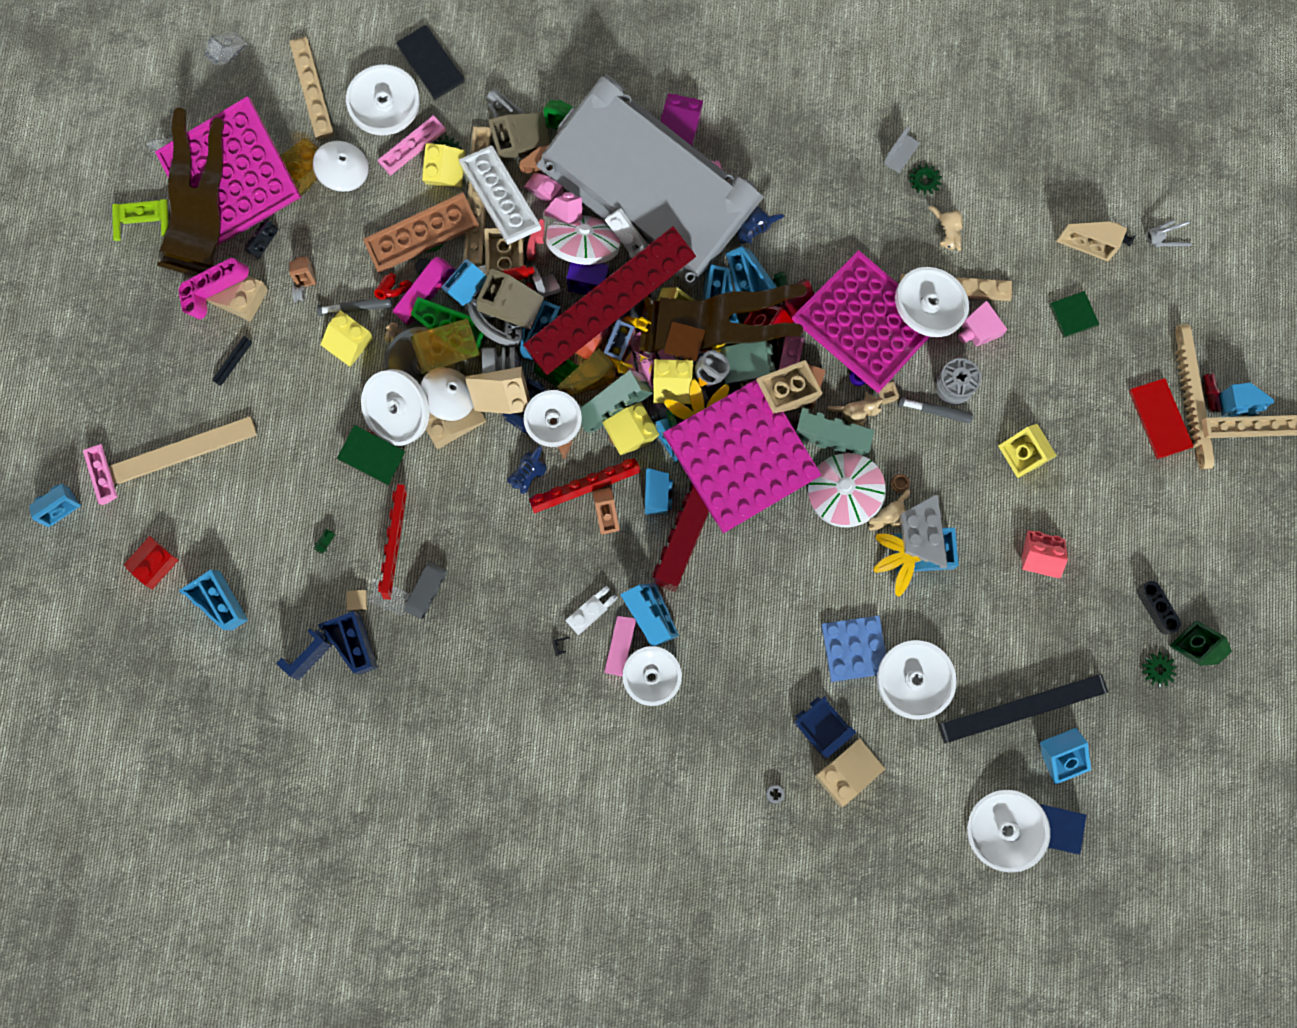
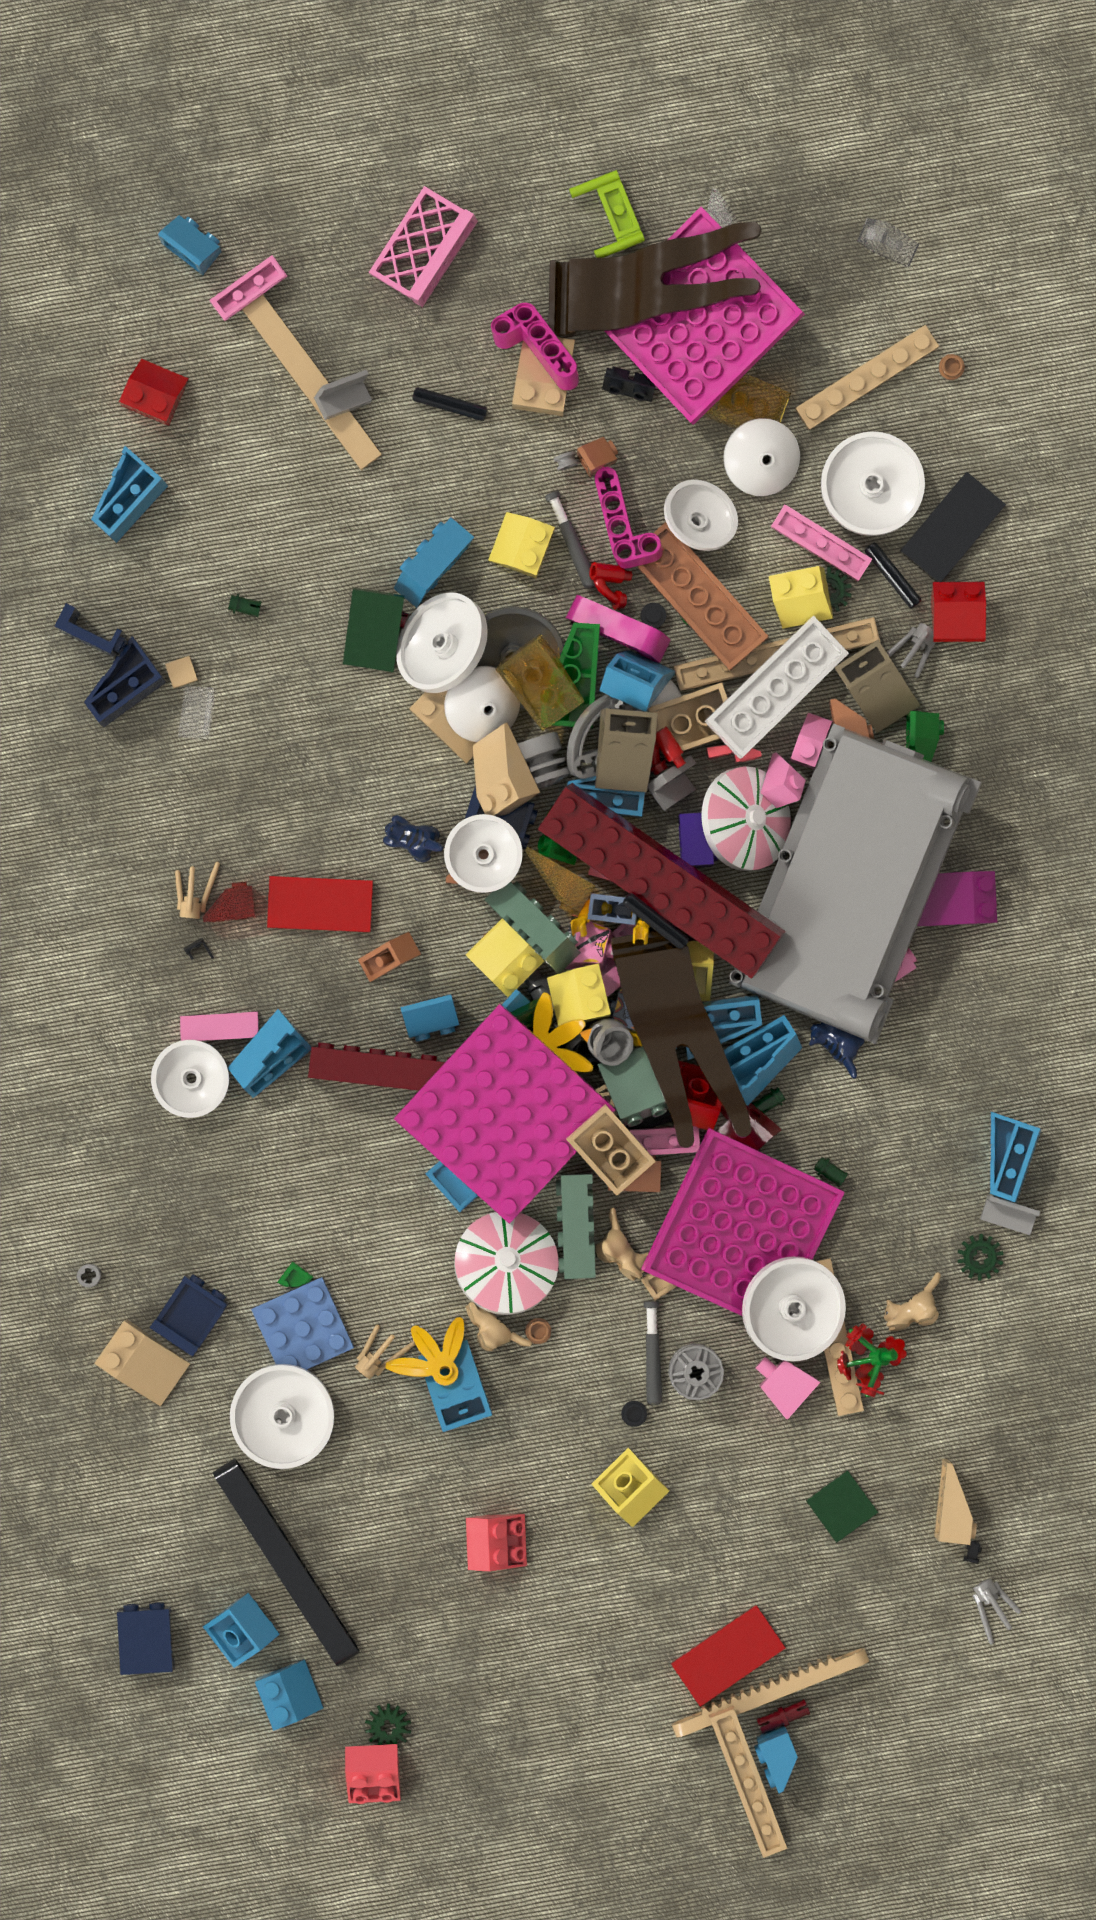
camera: 75 degrees right, 10 degrees up
(125, 334) = (441, 258): none -> bright pink fence
(198, 429) = (343, 395): none -> light grey panel
(323, 33) = (951, 367): none -> medium nougat plate
(336, 401) = (432, 561): none -> dark azure wedge
(349, 265) = (620, 517): none -> dark pink beam
(366, 214) = (708, 508): none -> white dish
(391, 549) = (255, 697): red plate -> none
(393, 331) = (548, 605): tan plant -> none
(425, 590) = (219, 756): dark grey beam -> none
(449, 107) = (893, 575): none -> black axle
(486, 68) = (958, 611): none -> red slope
(527, 640) = (190, 905): none -> tan plant
(535, 609) = (233, 904): none -> clear red slope
(553, 549) = (320, 904): none -> red tile
(584, 485) = (414, 919): red plate -> none
(590, 611) = (252, 974): white hinge -> none
(626, 232) = (768, 876): white plate -> none
(636, 311) = (655, 920): none -> black axle
(684, 341) = (634, 995): reddish brown sticker -> none
(779, 514) = (451, 1186): none -> dark azure tile
(815, 643) = (294, 1276): none -> green tile
(837, 260) = (830, 1171): none -> dark green pin
(862, 137) = (1011, 1155): none -> dark azure wedge
(894, 606) = (370, 1364): none -> tan plant
(924, 532) = (472, 1376): light grey wing -> none
(975, 434) = (634, 1413): none -> black plate
(978, 252) = (888, 1352): none -> red plant
(1008, 831) = (124, 1578): white dish -> none
(1121, 734) = (288, 1694): none -> dark azure slope
(1167, 612) = (463, 1719): black beam -> none
(1192, 689) = (372, 1773): none -> coral slope
(1202, 645) = (432, 1772): dark green slope -> none

